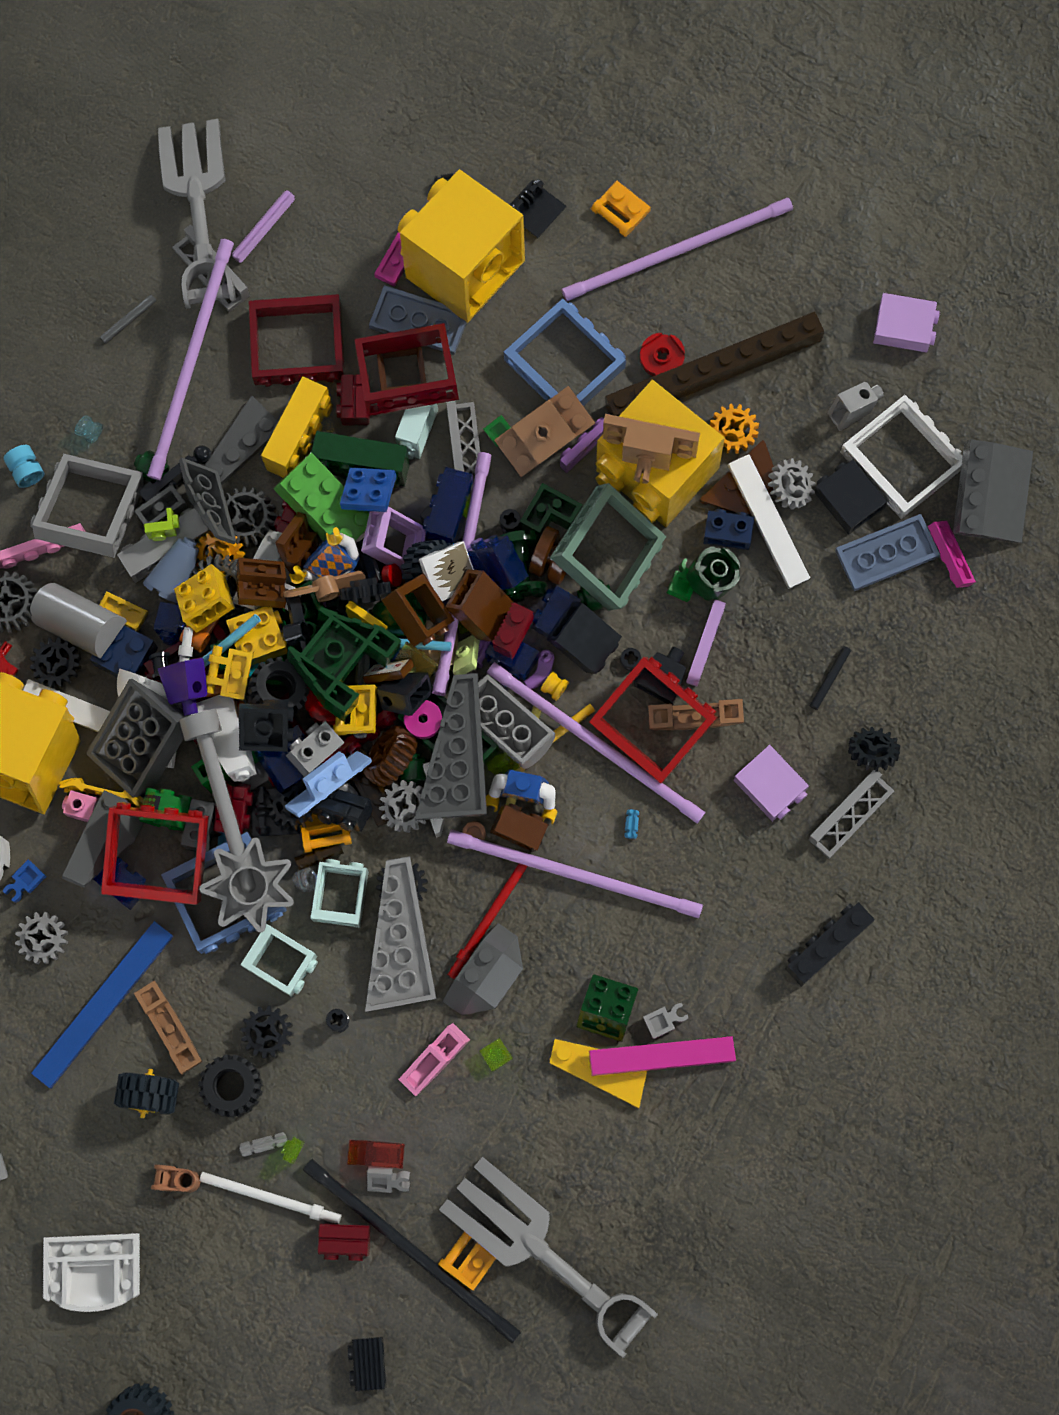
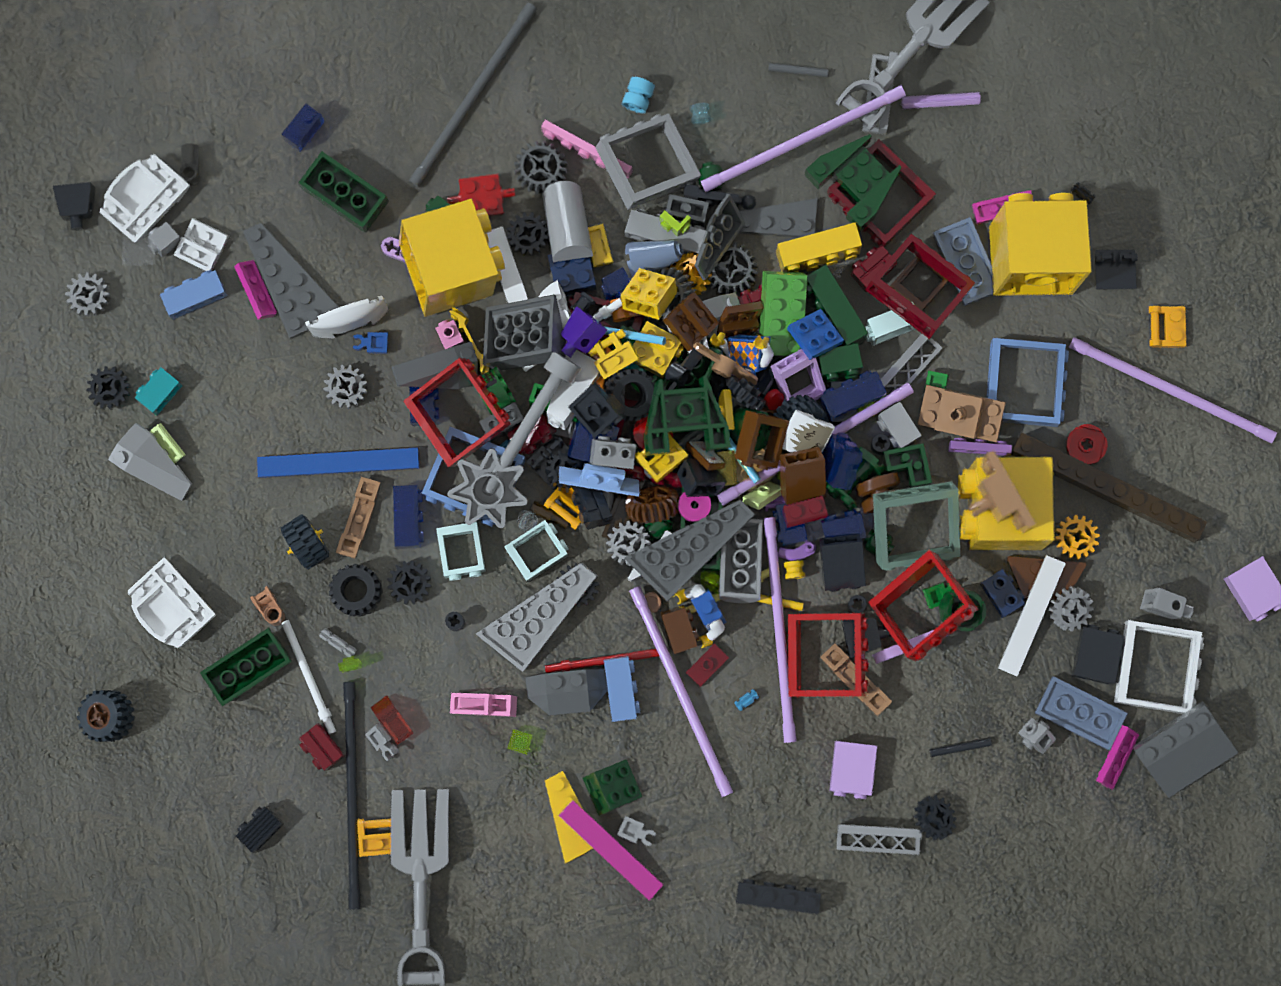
camera: 50 degrees right, 5 degrees up
(207, 982) = (407, 516): none -> clear blue brick
(210, 1247) = (246, 666): none -> dark green brick
(264, 341) = (859, 175): none -> dark green wedge
(412, 492) = (840, 363): none -> dark green brick
(508, 492) = (898, 426): none -> light grey brick
(527, 923) = (621, 688): none -> medium blue brick
(571, 832) = (707, 665): none -> dark red plate
(647, 601) = (902, 584): none -> red window
(876, 603) = (1034, 732): none -> light grey brick

